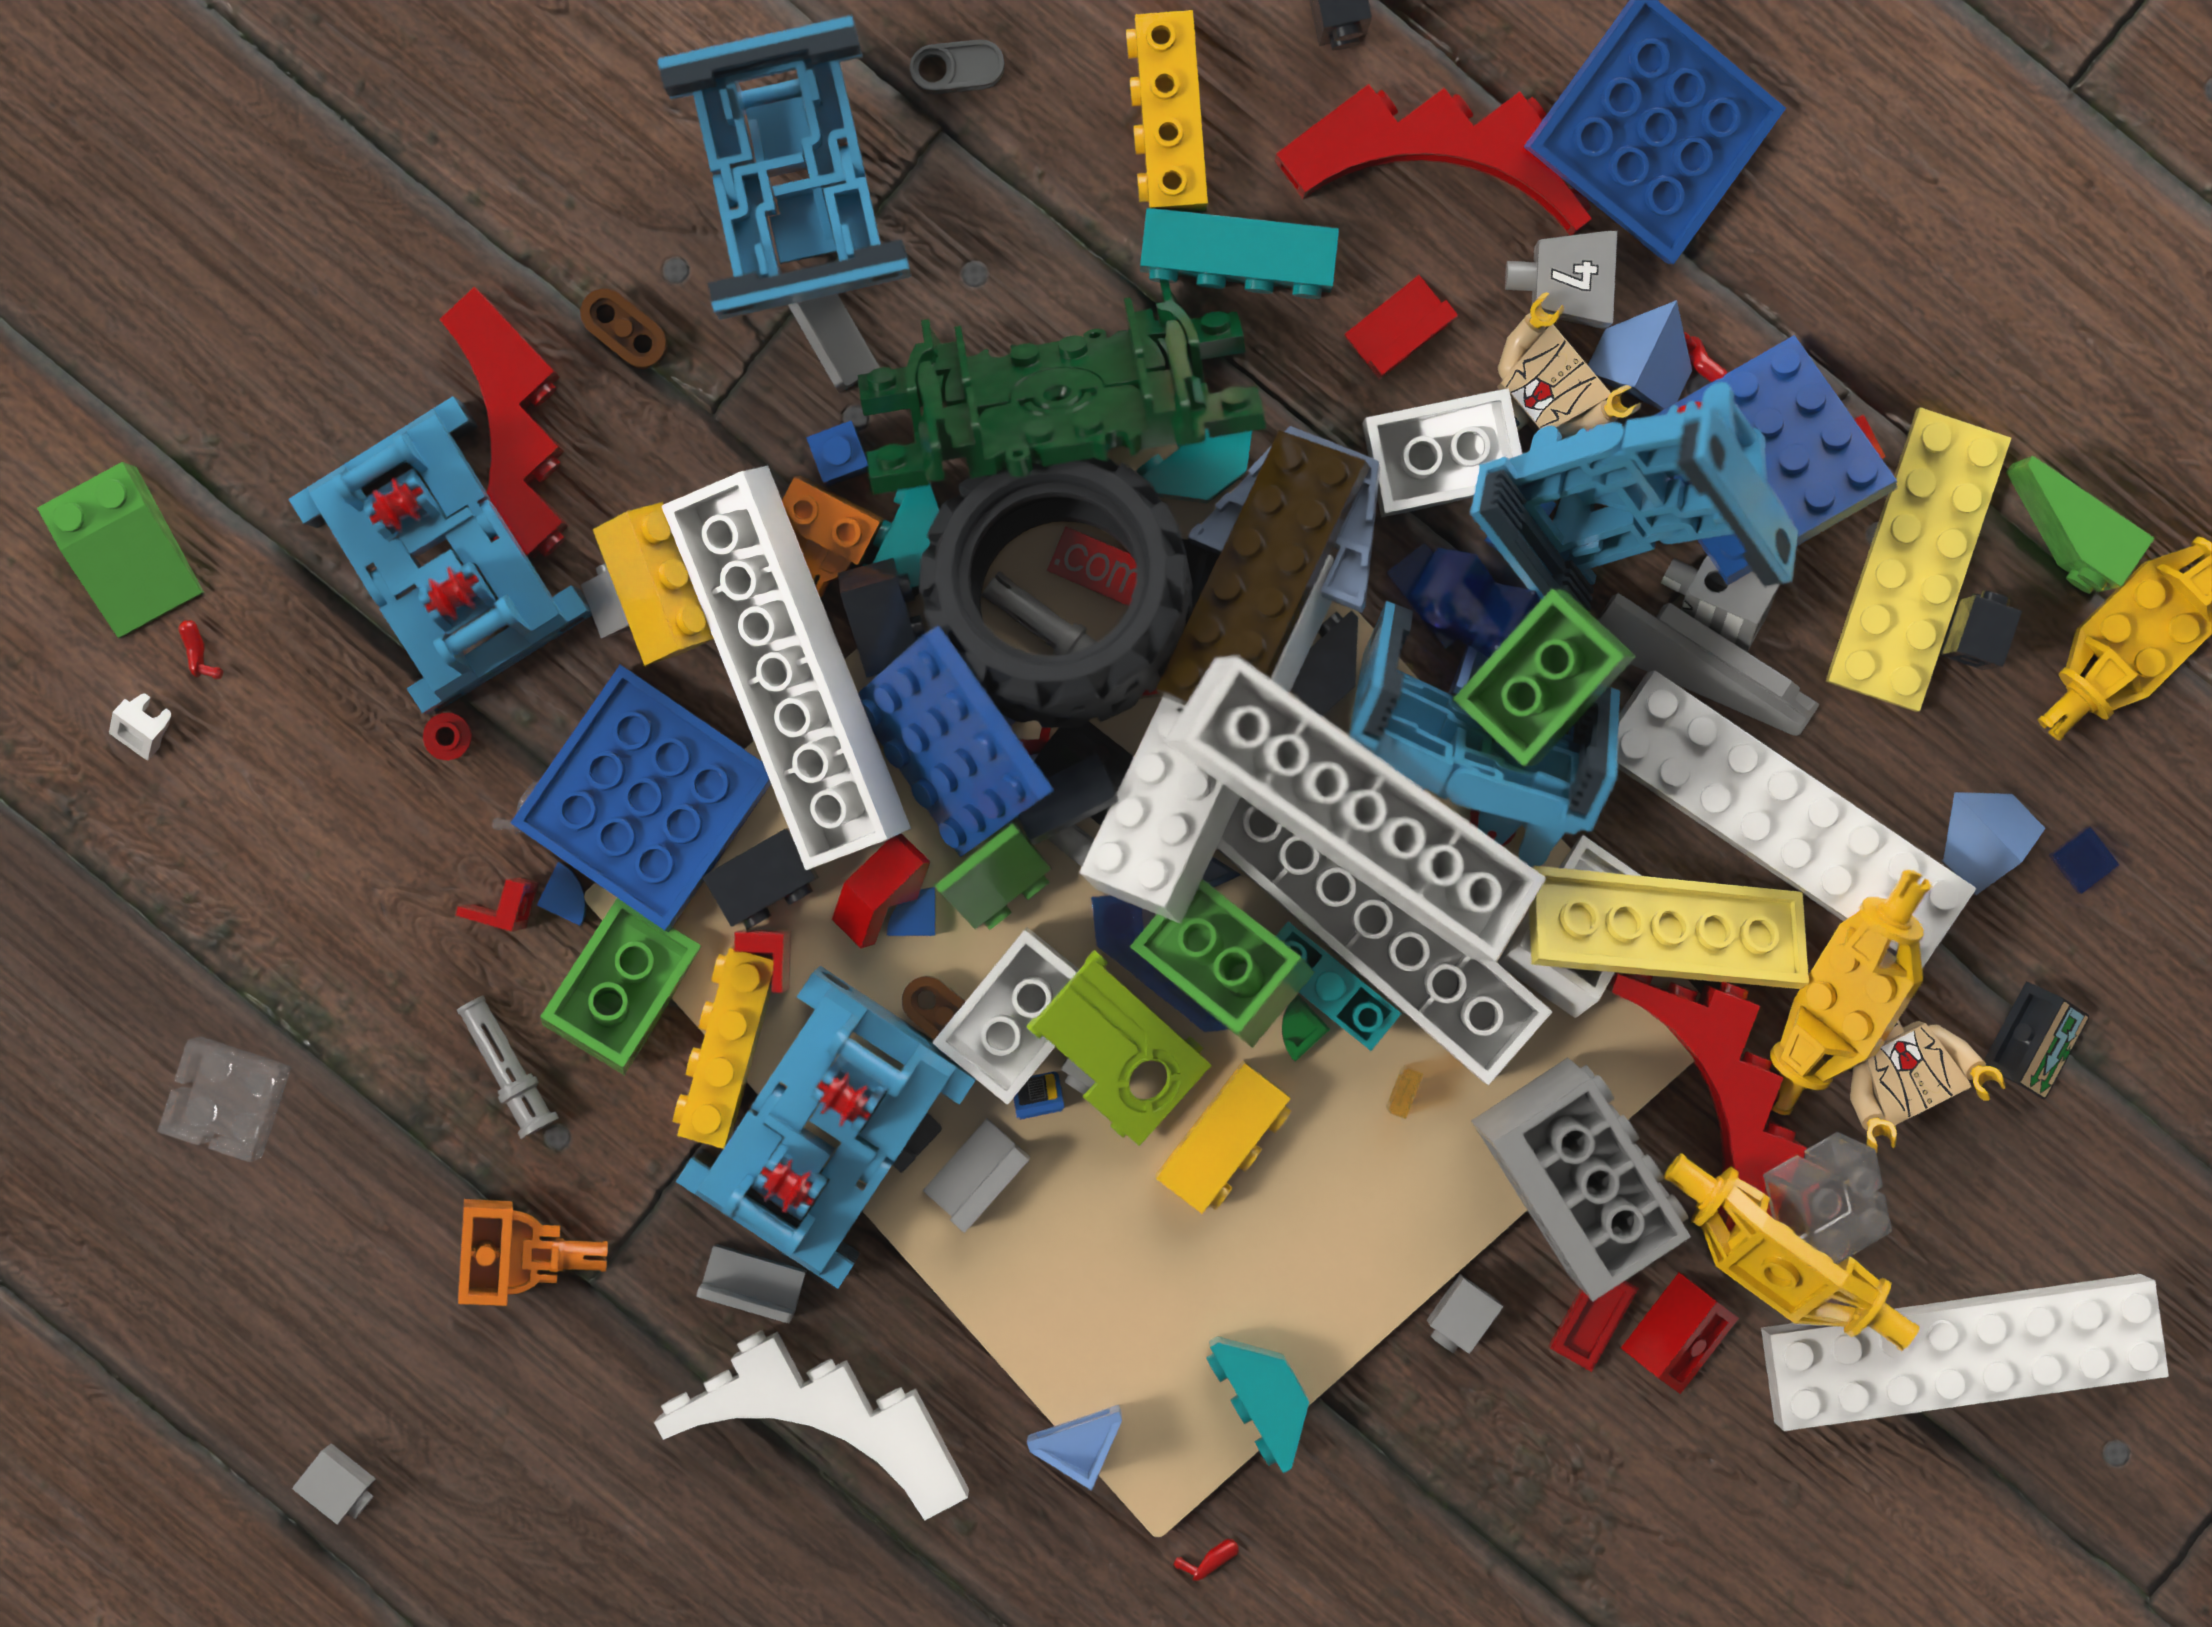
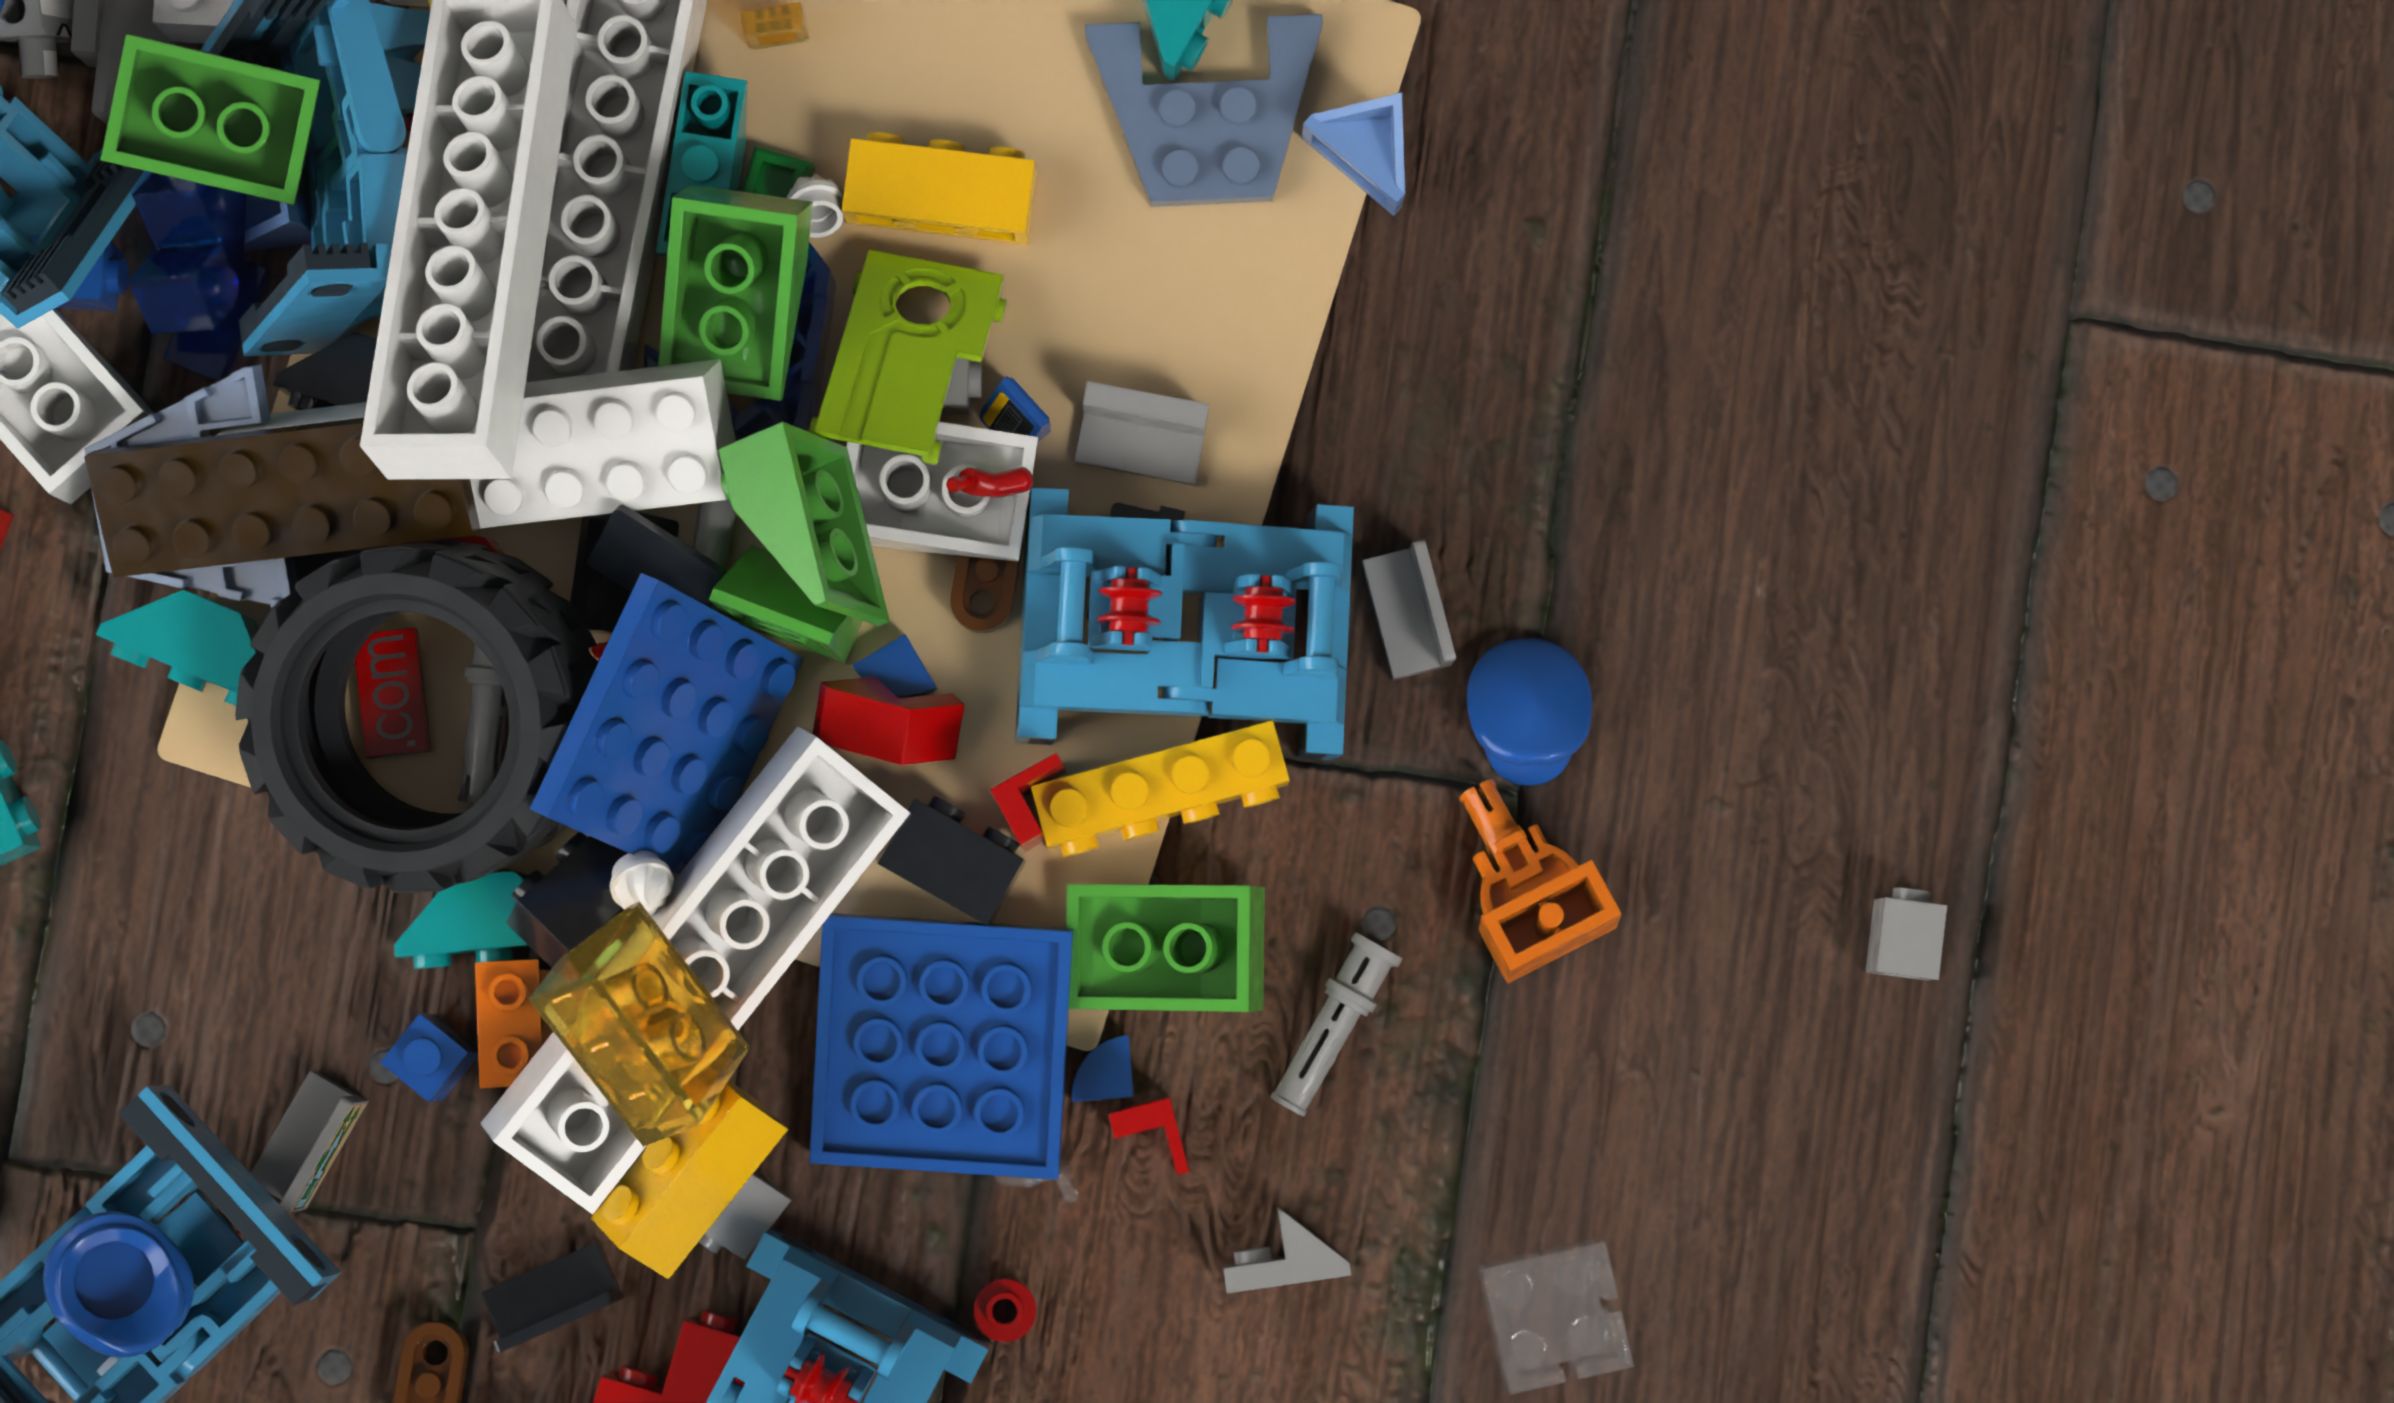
camera: 125 degrees left, 5 degrees down
(361, 952) = (1304, 1260): none -> light grey slope
(633, 441) = (551, 1296): none -> black panel
(639, 1325) = (1529, 708): none -> blue piece
(758, 613) = (641, 1026): none -> clear yellow slope
(770, 1386) = (1484, 450): white arch -> none
(793, 172) = (118, 1283): none -> blue piece
(861, 664) = (641, 879): none -> white plate
(993, 1052) = (987, 484): none -> red piece
(1040, 920) = (808, 514): none -> bright green slope
(1059, 397) = (216, 840): dark green piece -> none
(1154, 1342) = (1207, 137): none -> sand blue wing
(1266, 1052) = (826, 200): none -> white plate

